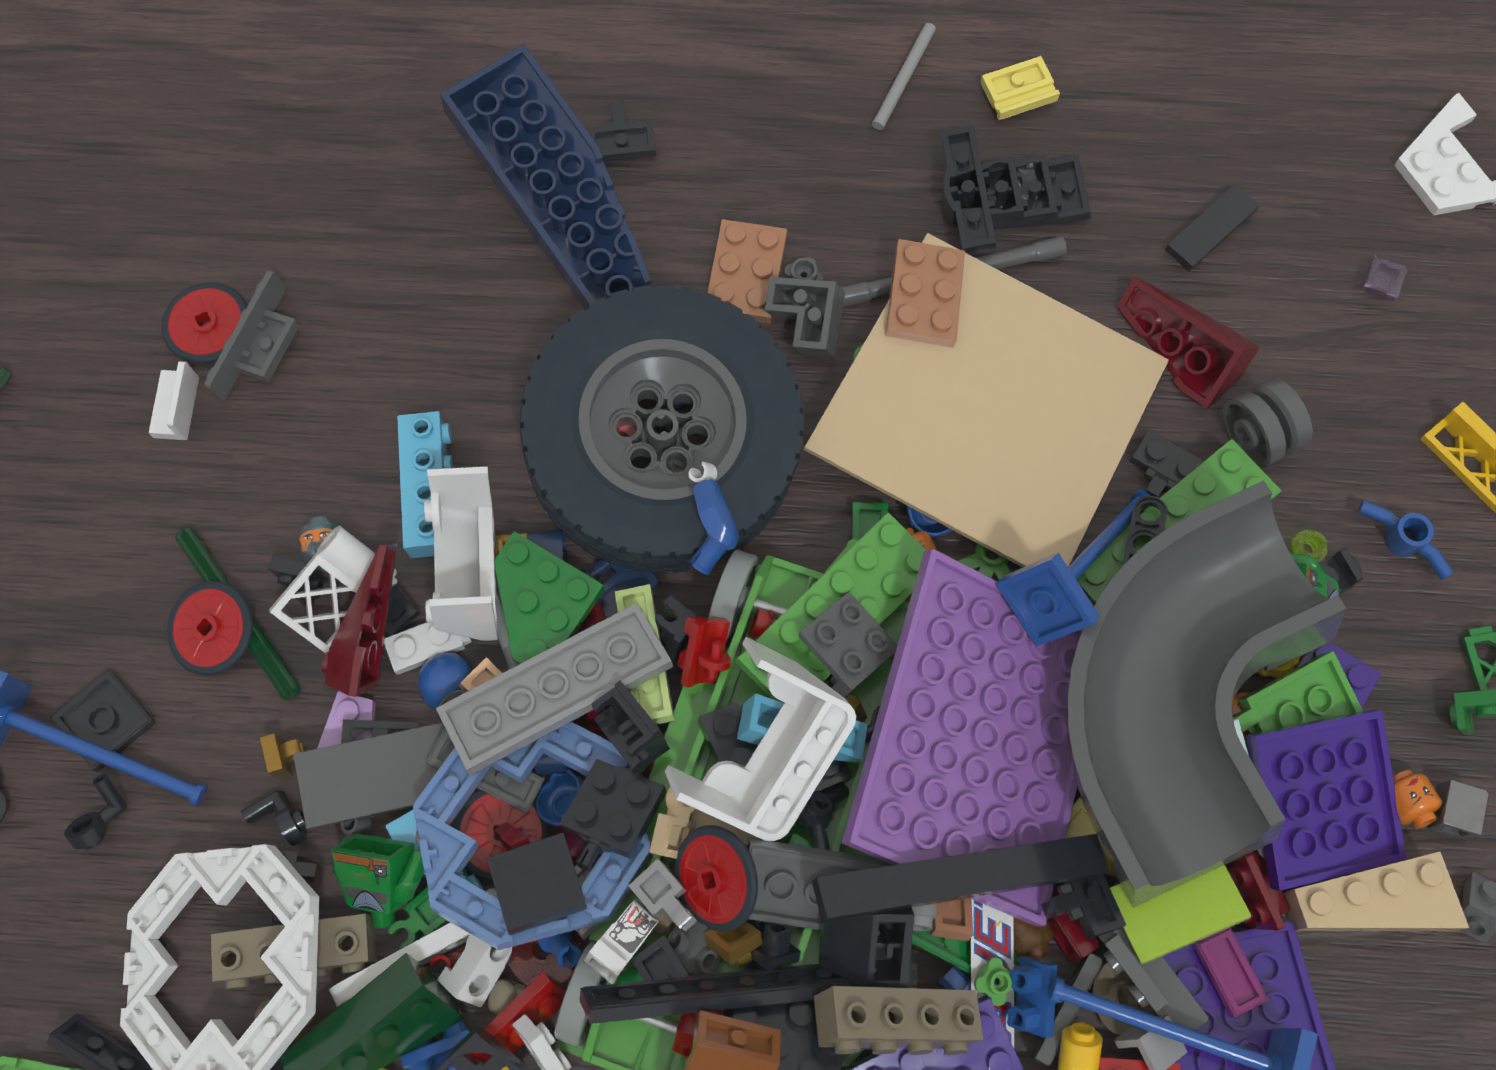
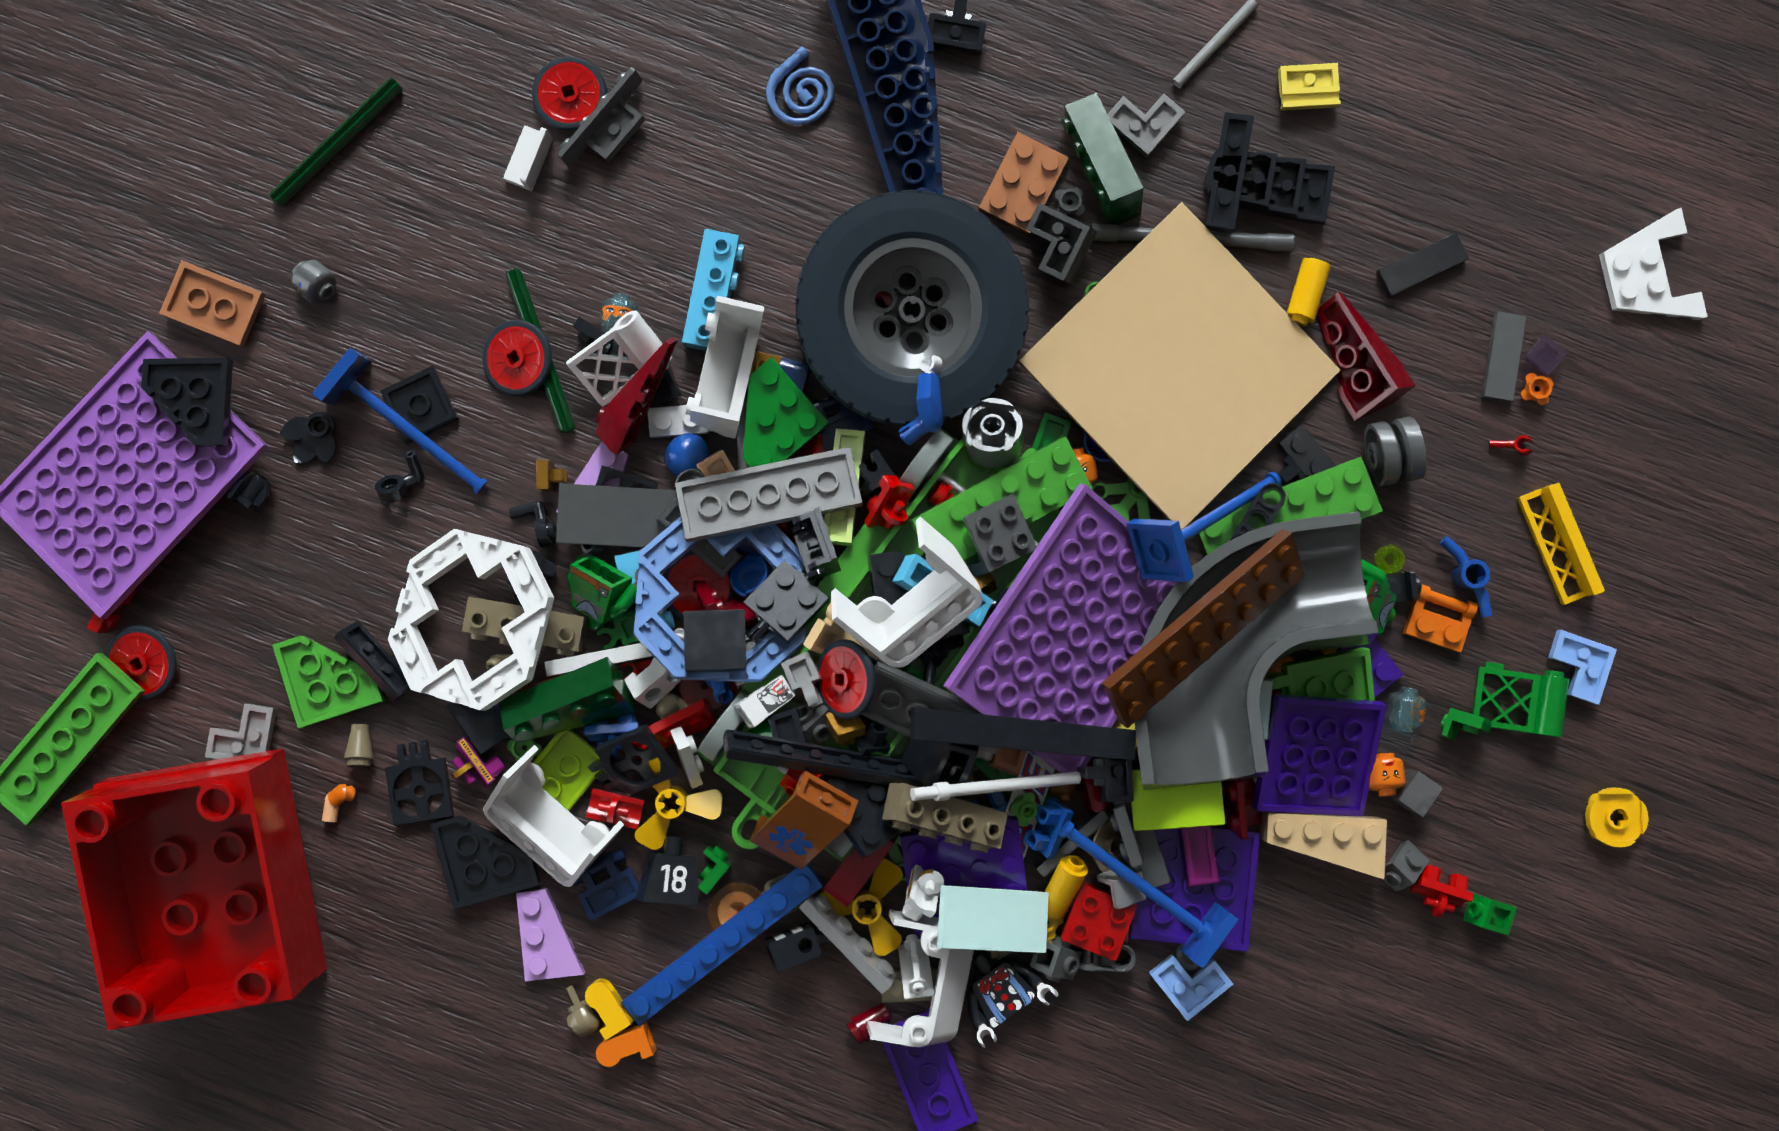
camera: 15 degrees right, 15 degrees up
(473, 250) = (778, 75): none -> medium blue piece
(802, 533) = (993, 433): none -> dark grey brick
(828, 218) = (1104, 159): none -> wedge
(857, 179) = (1147, 129): none -> light grey plate
(887, 981) = (943, 791): none -> white bar
(925, 293) = (1160, 256): nougat plate -> none
(1100, 286) = (1308, 291): none -> yellow brick
(1133, 676) = (1204, 628): none -> reddish brown plate
(1340, 294) = (1503, 356): none -> dark grey tile
(1393, 380) = (1513, 444): none -> red hand
(1396, 609) = (1436, 627): none -> orange plate
(1397, 309) = (1545, 388): none -> orange plate
(1404, 713) = (1405, 709): none -> clear light blue head

